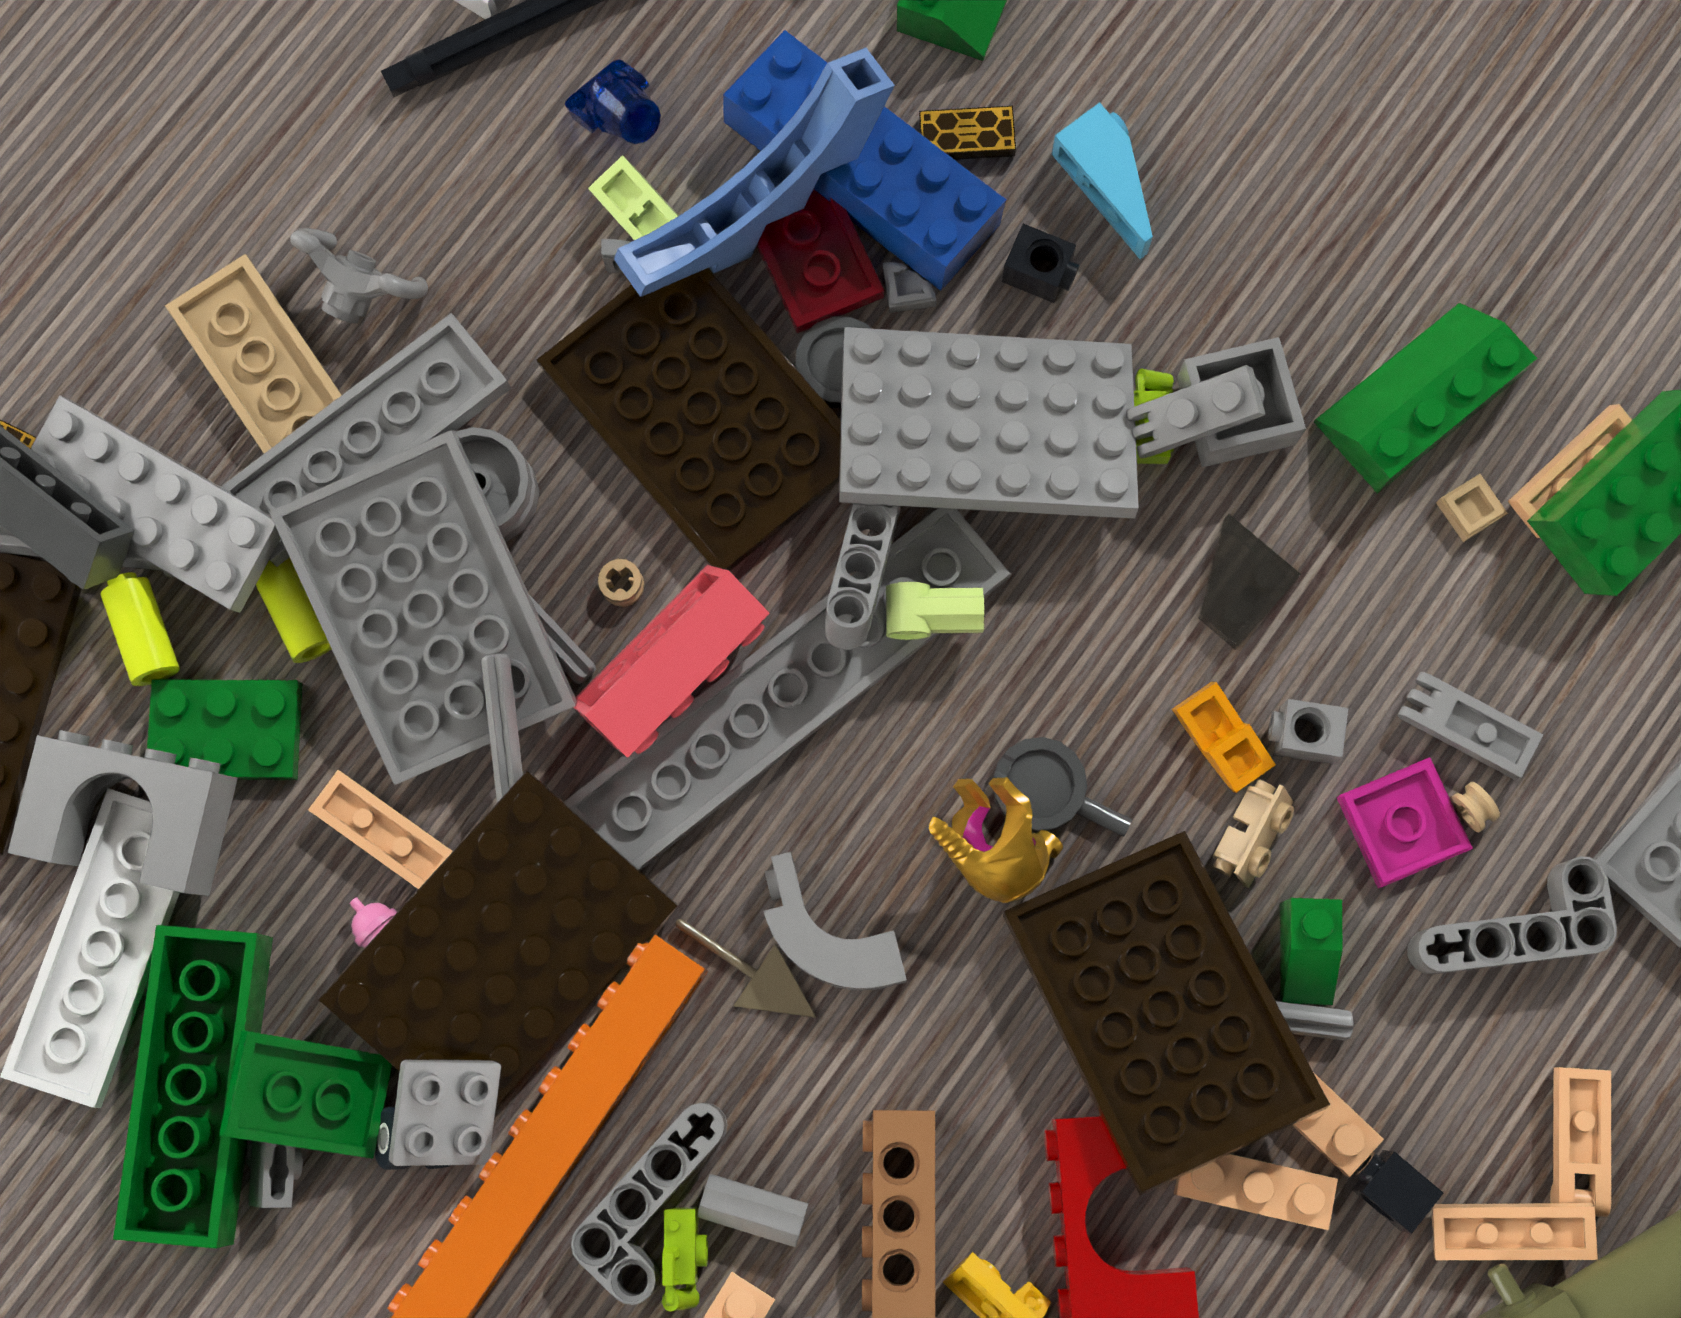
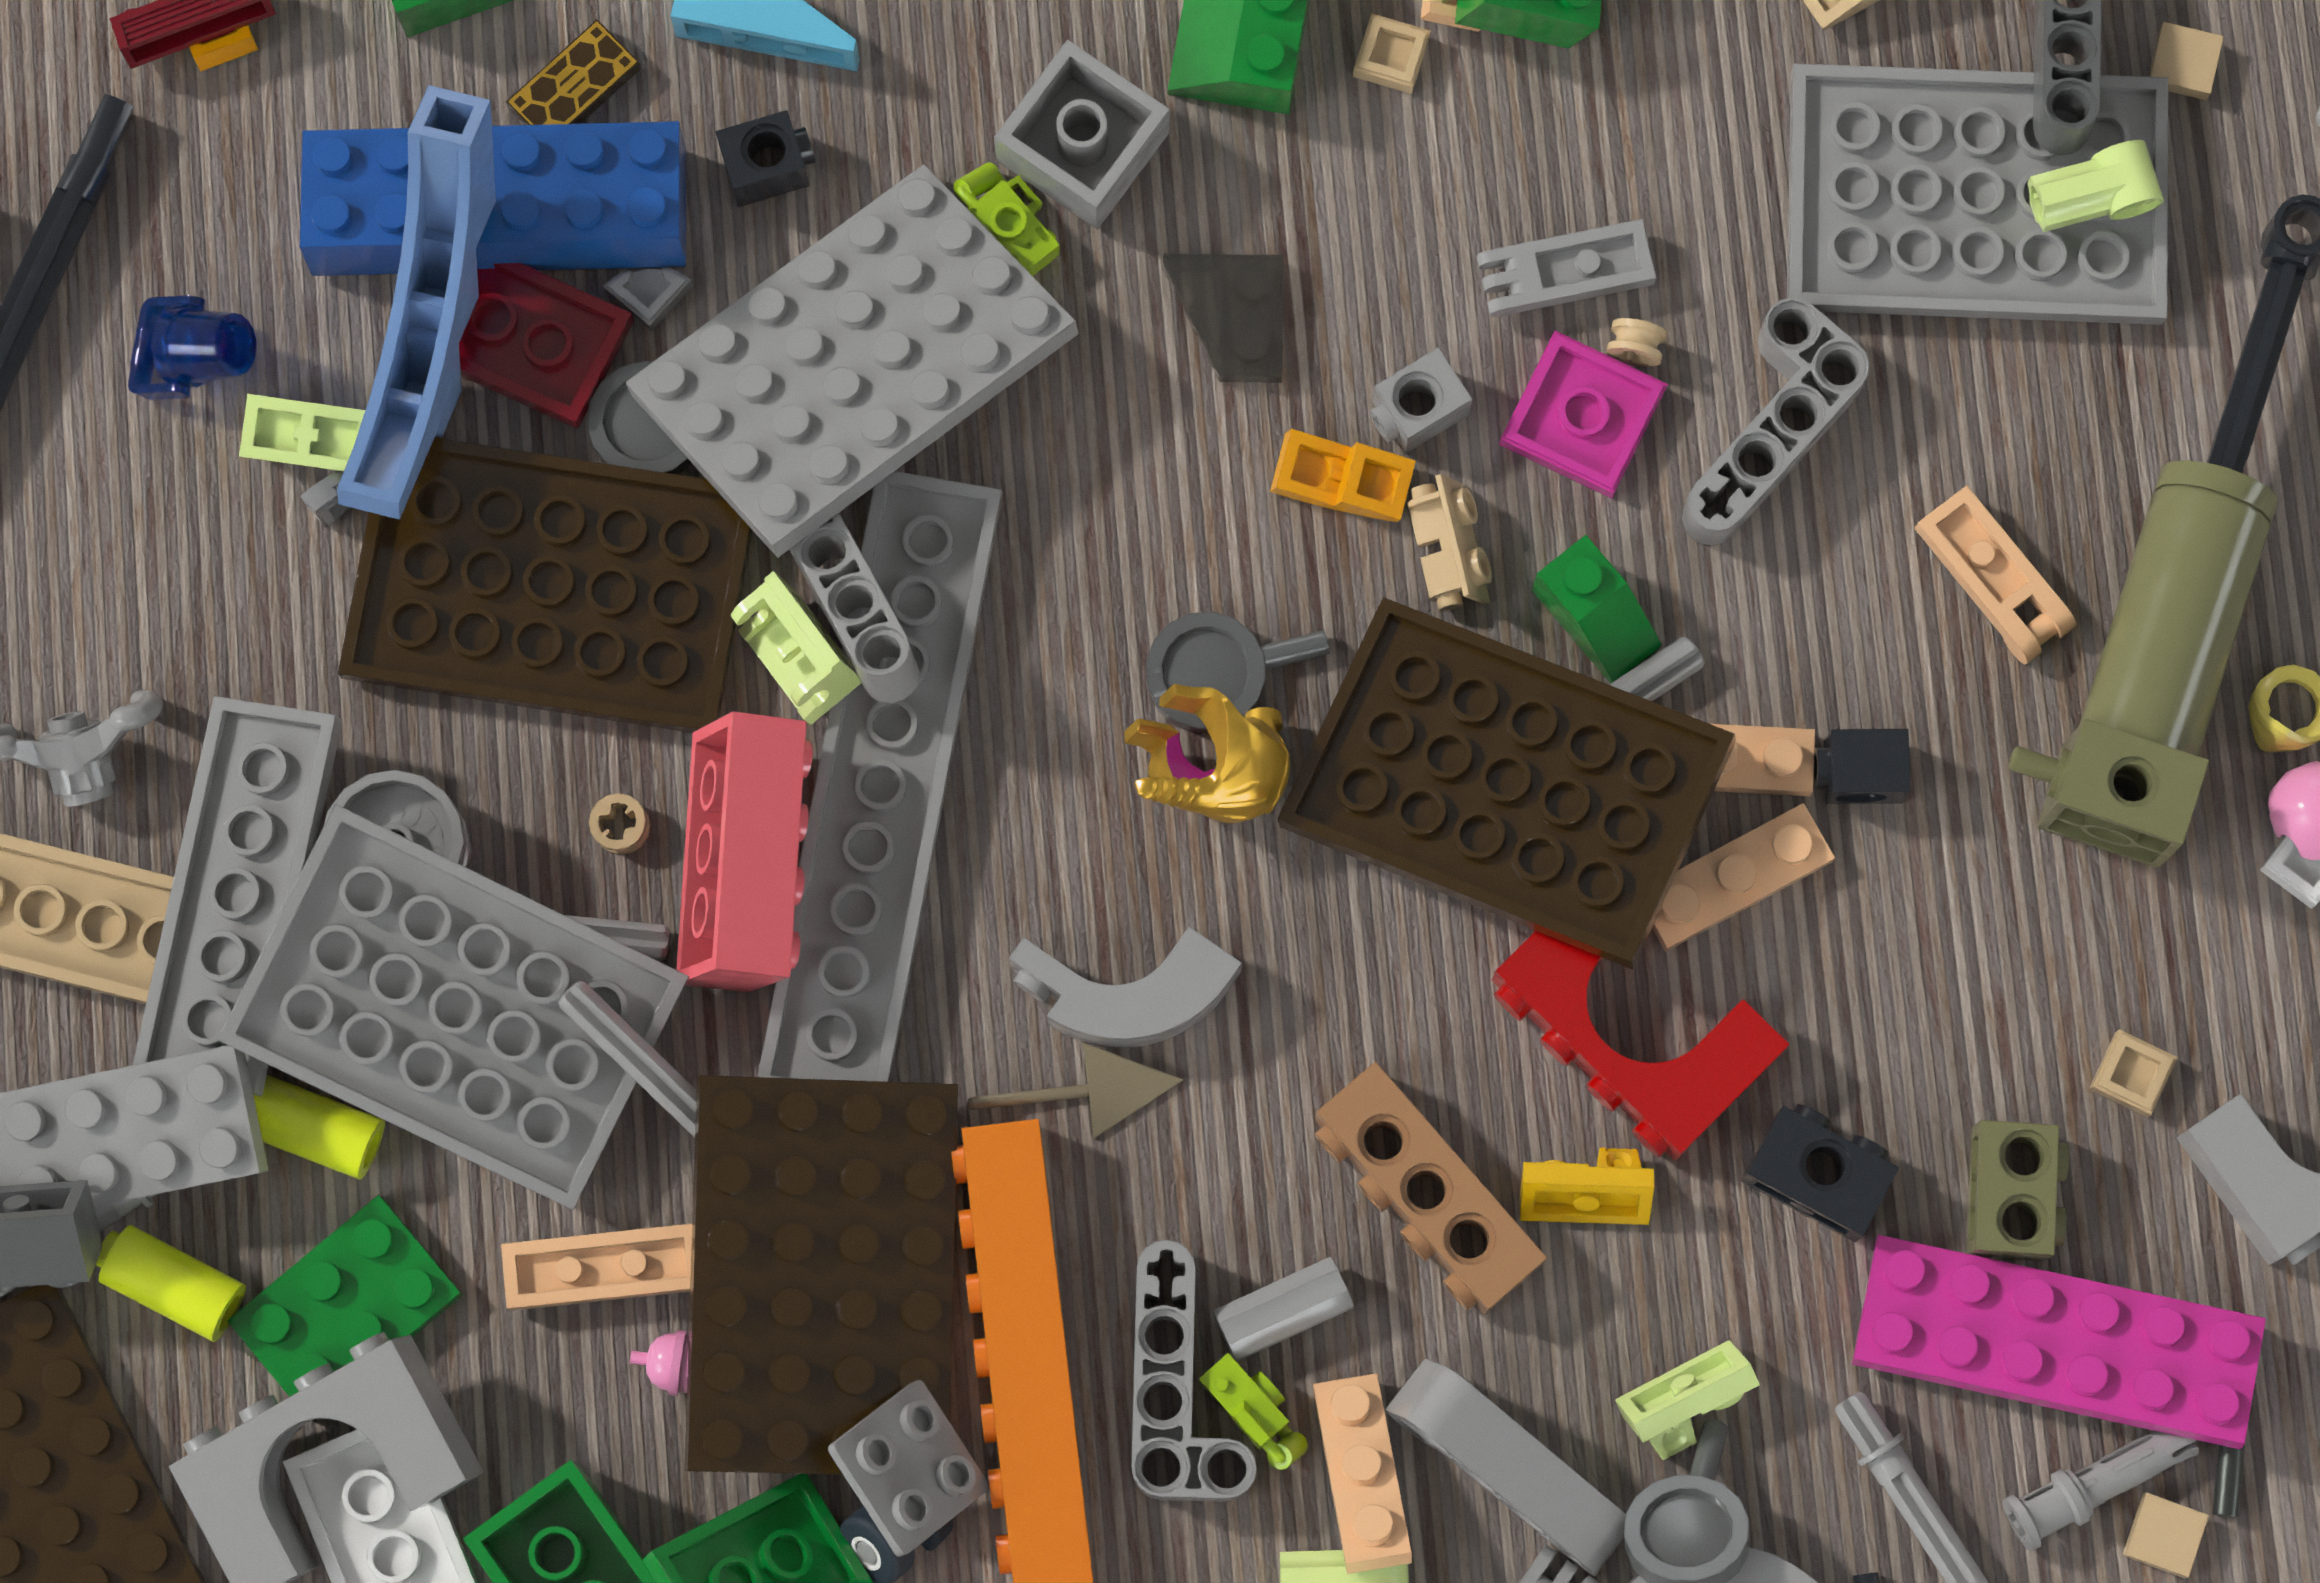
camera: 45 degrees left, 0 degrees up
(808, 564) = (795, 648): none -> yellowish green hinge
(918, 610) = (946, 599): yellowish green piece -> none
(1197, 411) = (1051, 178): light grey hinge -> none
(1514, 1231) = (2002, 711): light nougat plate -> none

